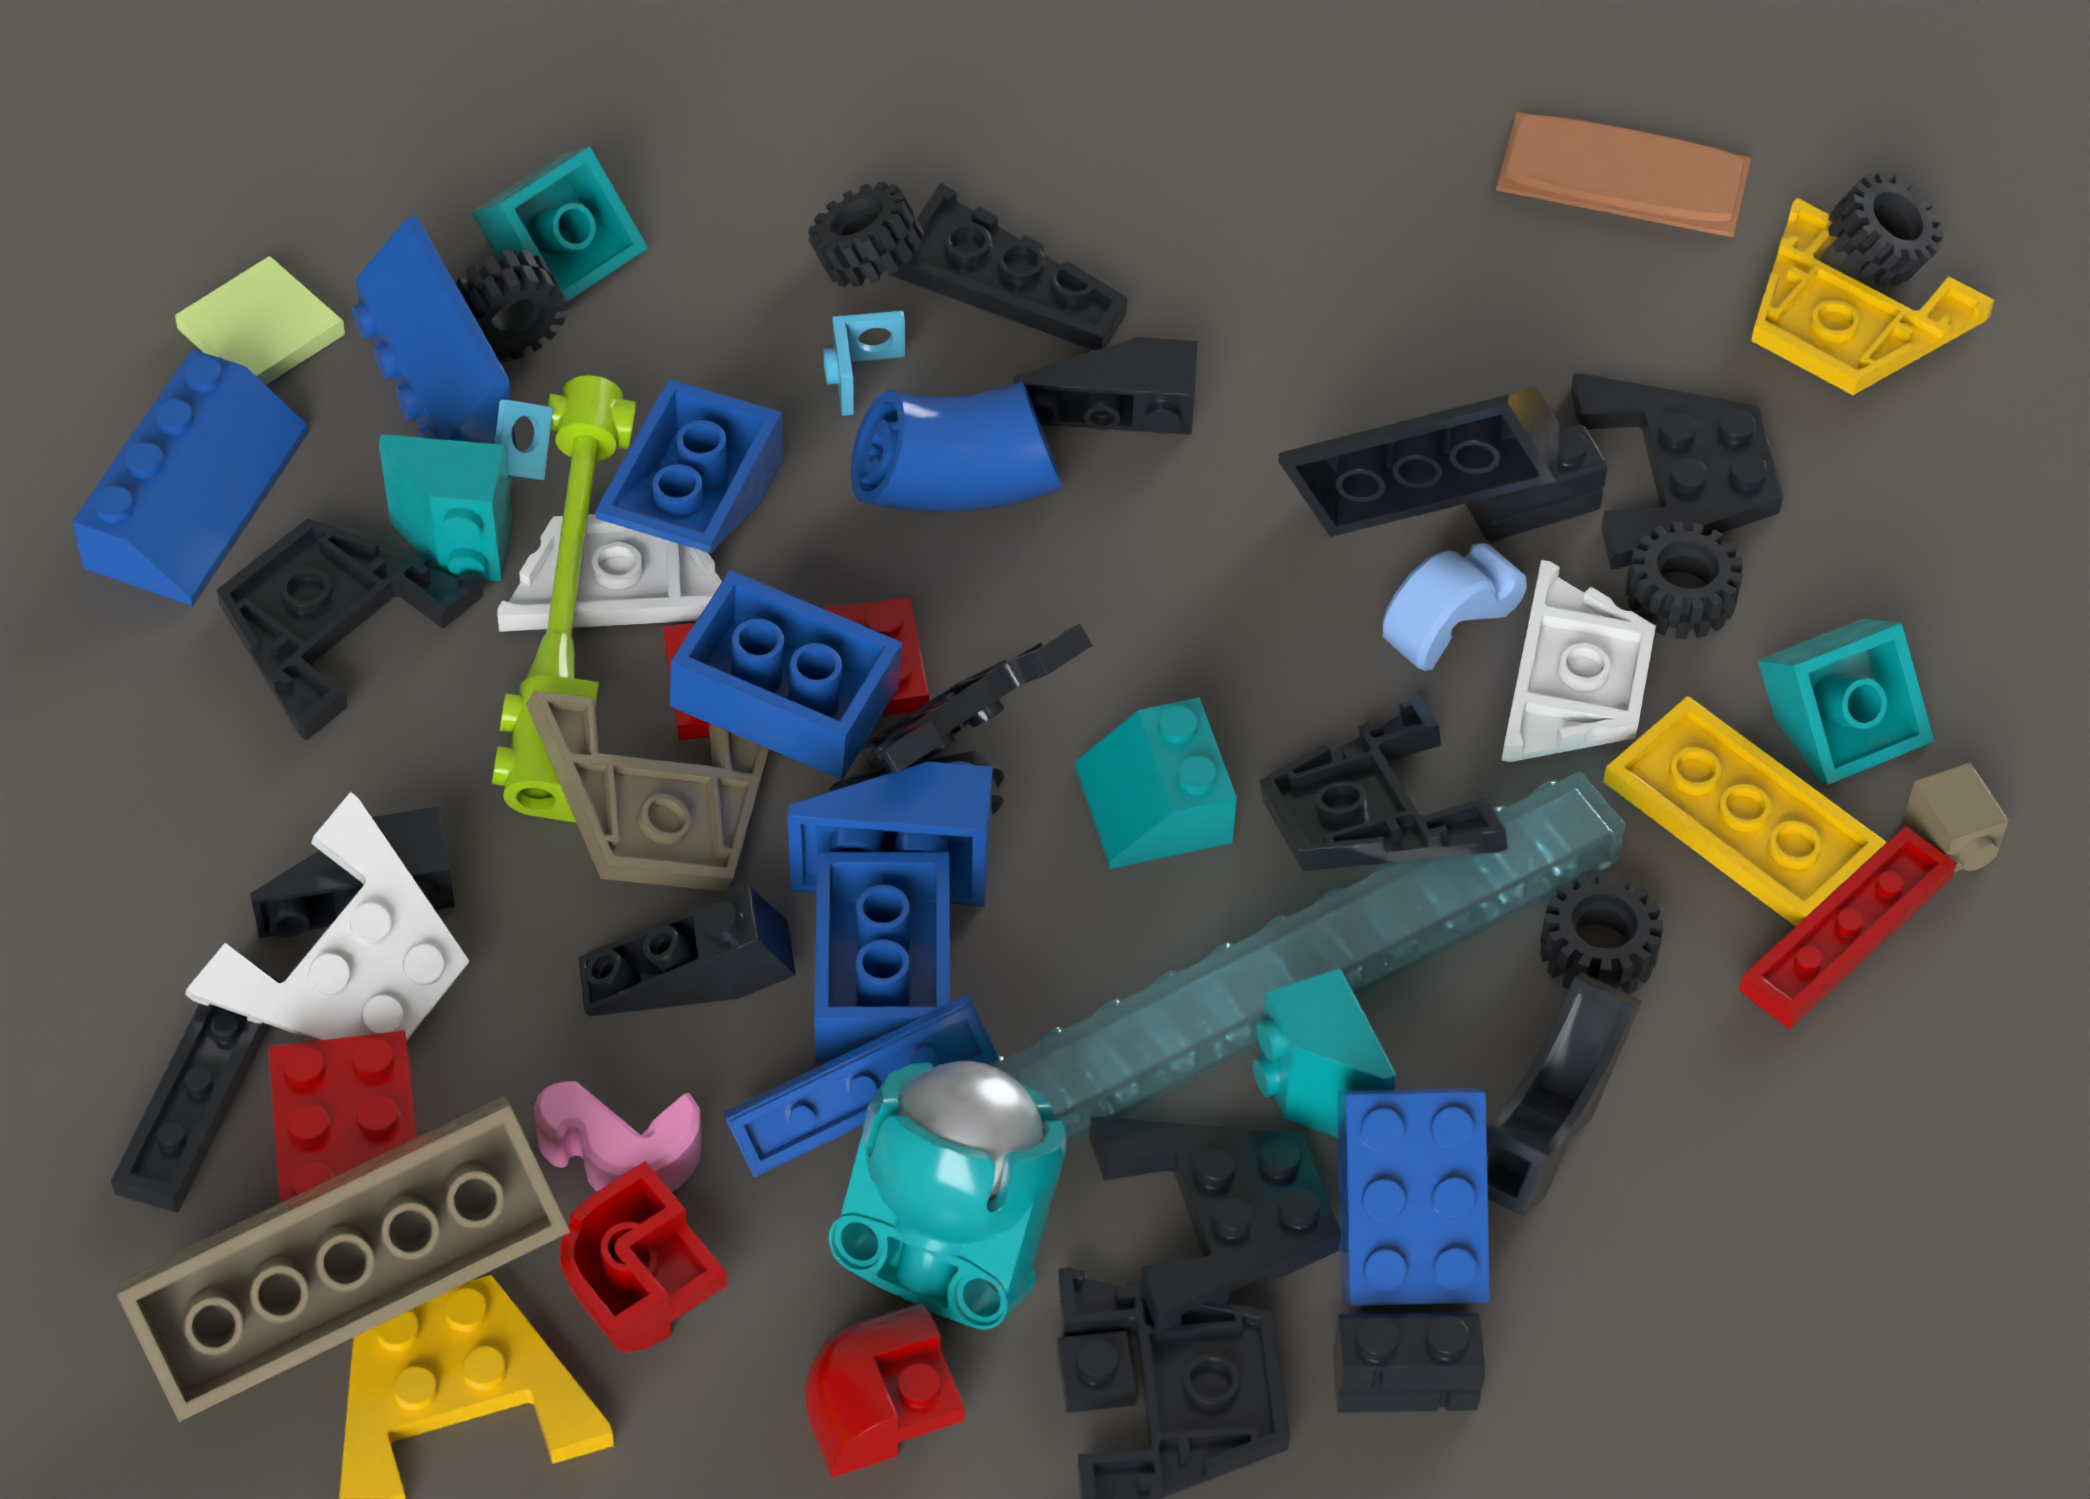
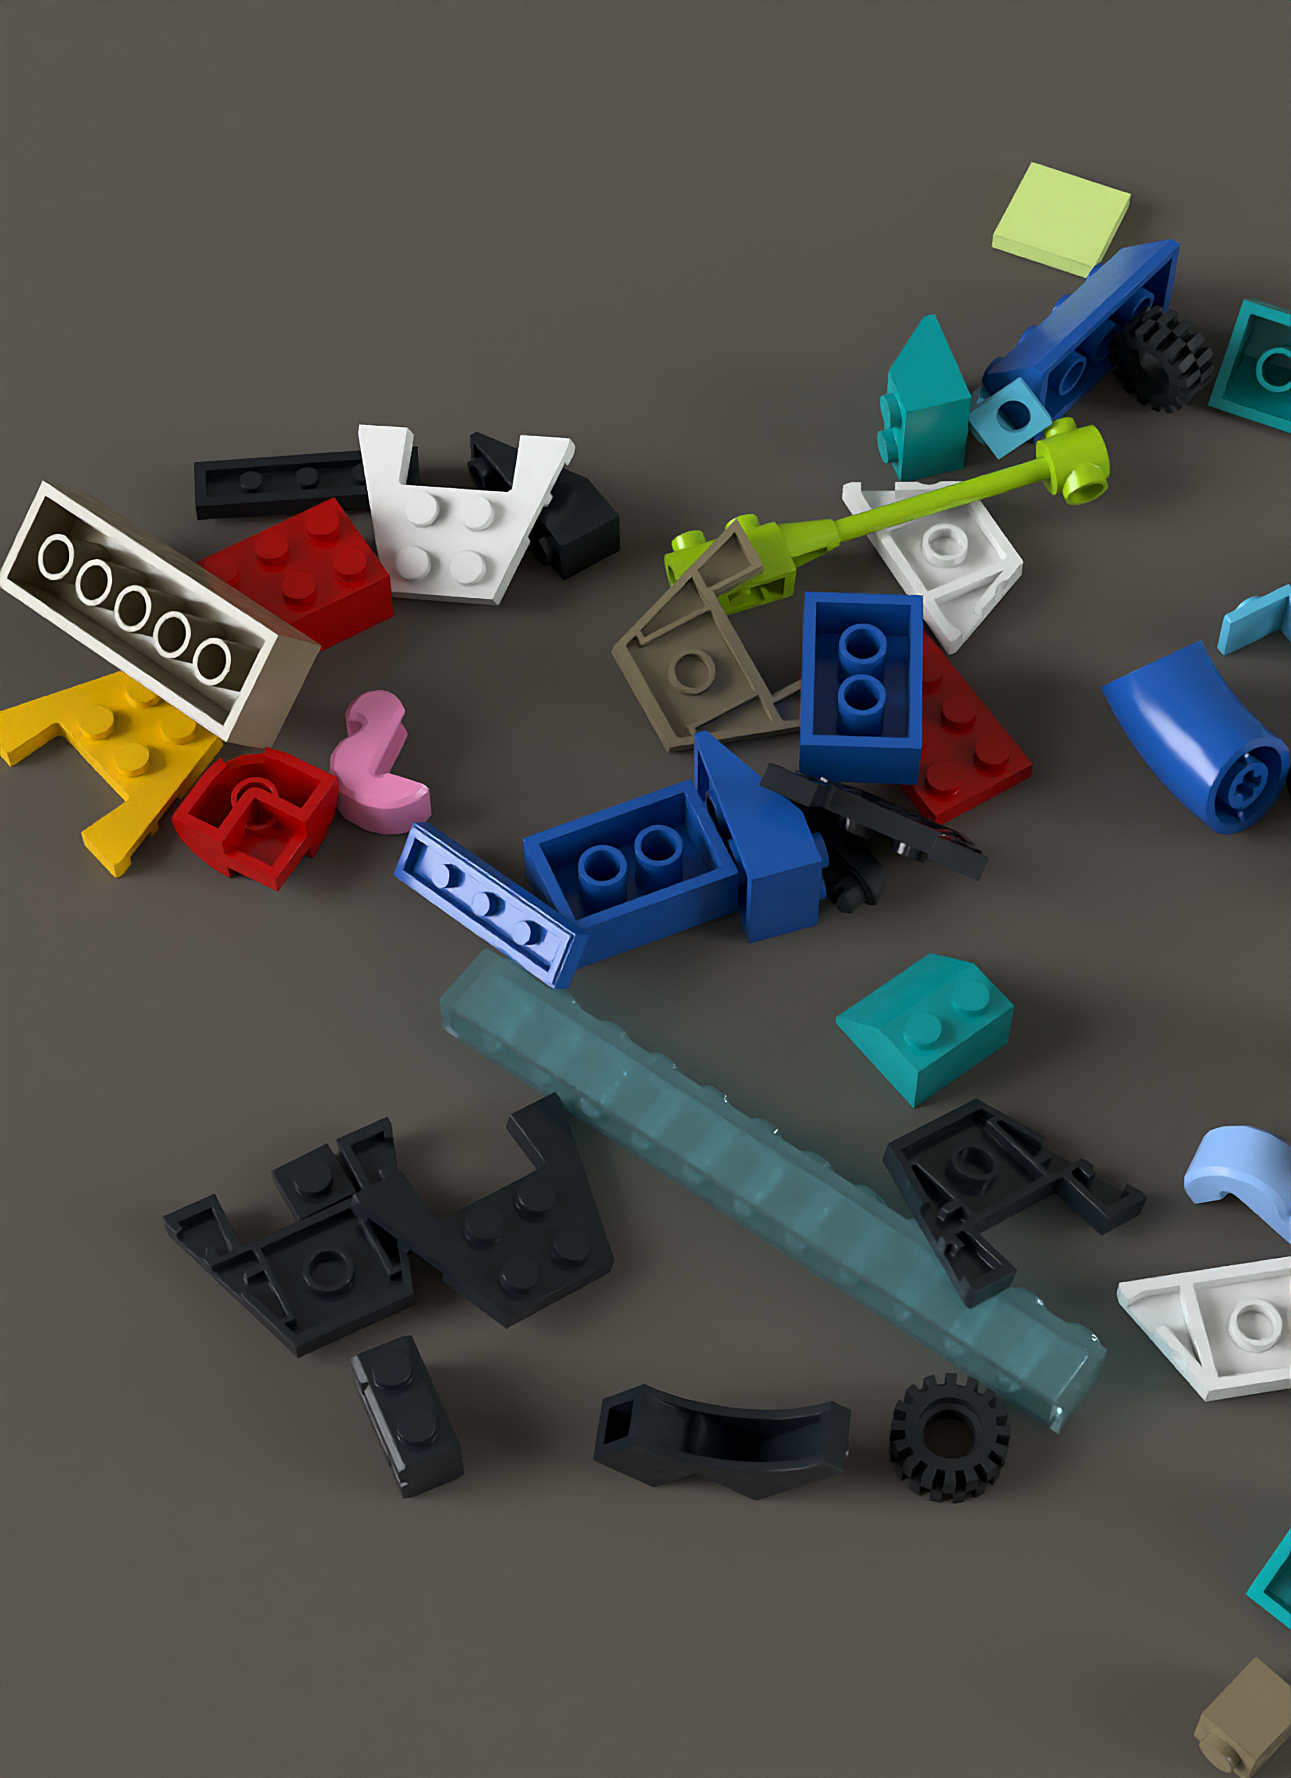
camera: 70 degrees right, 5 degrees up
(188, 479) = (870, 236): blue slope -> none
(316, 592) = (797, 361): black wing -> none
(692, 958) = (574, 747): black slope -> none
(695, 467) = (1055, 552): blue slope -> none
(878, 1388) = (229, 1032): red brick -> none
(954, 1187) = (398, 988): teal piece -> none
(1316, 1044) = (682, 1237): teal slope -> none
(1413, 1196) = (550, 1349): blue brick -> none
(1742, 810) = (1159, 1523): yellow plate -> none
(1847, 927) = (1072, 1656): red plate -> none

